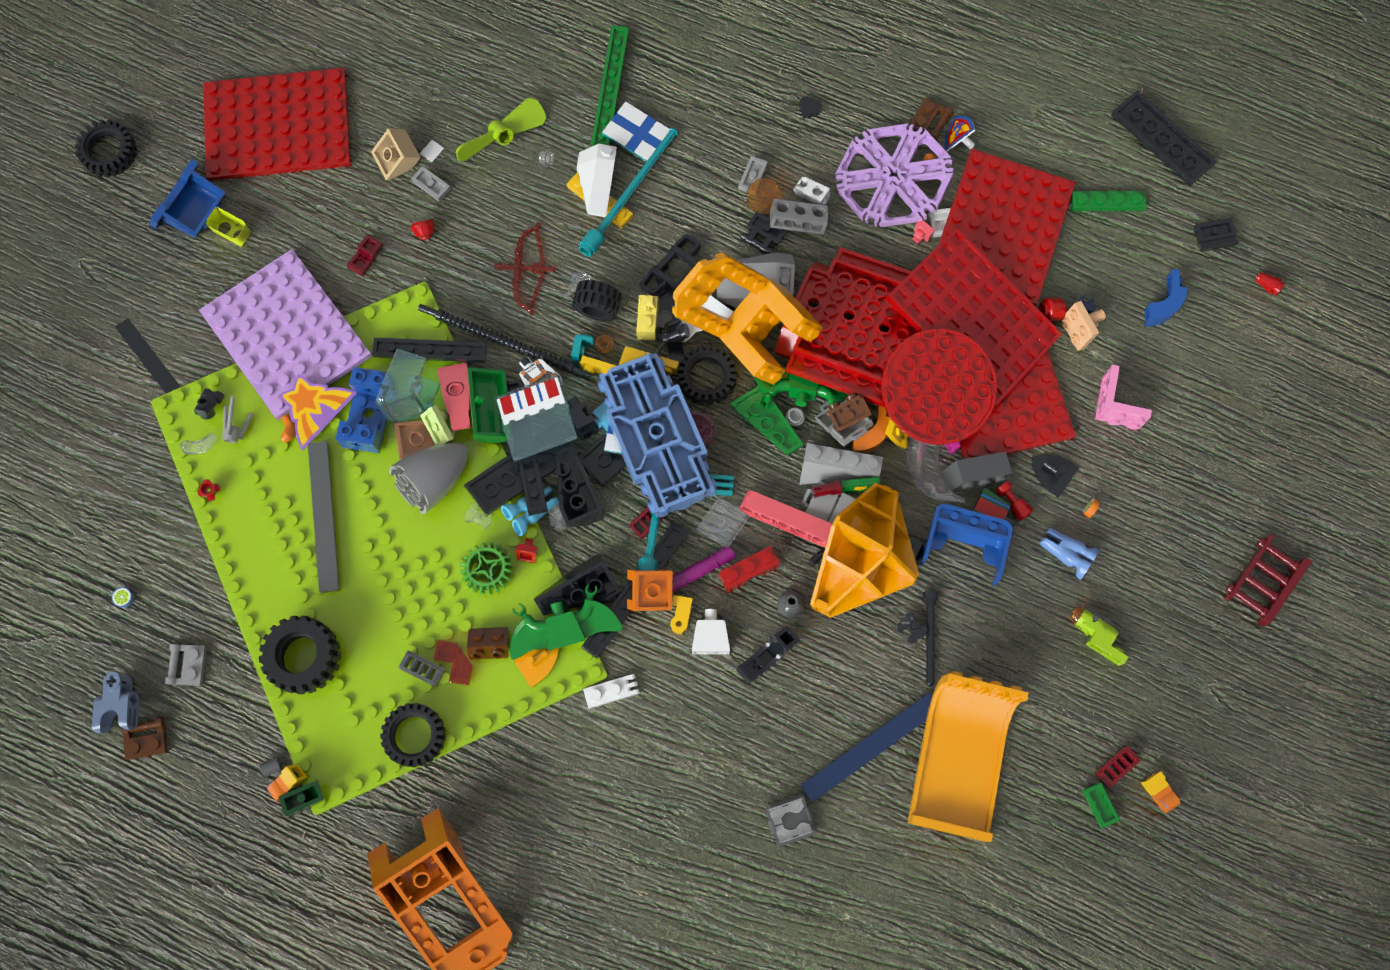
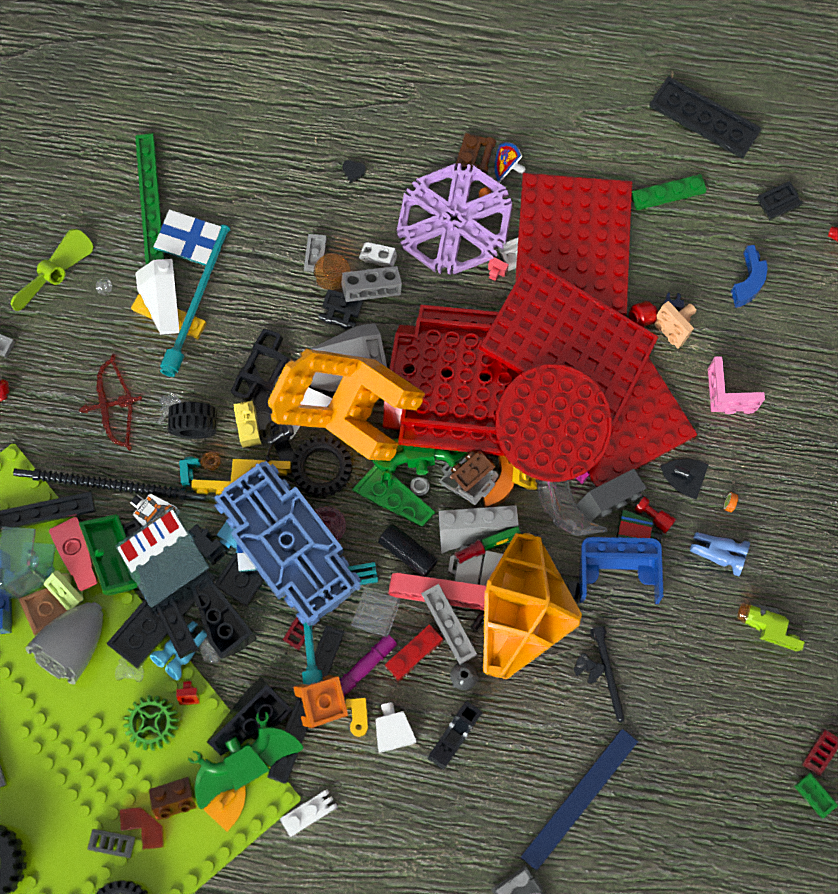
camera: 15 degrees left, 0 degrees up
(768, 473) = (408, 550): none -> black piece
(789, 550) = (449, 624): none -> light grey piece
(962, 755) = (670, 785): light orange panel -> none

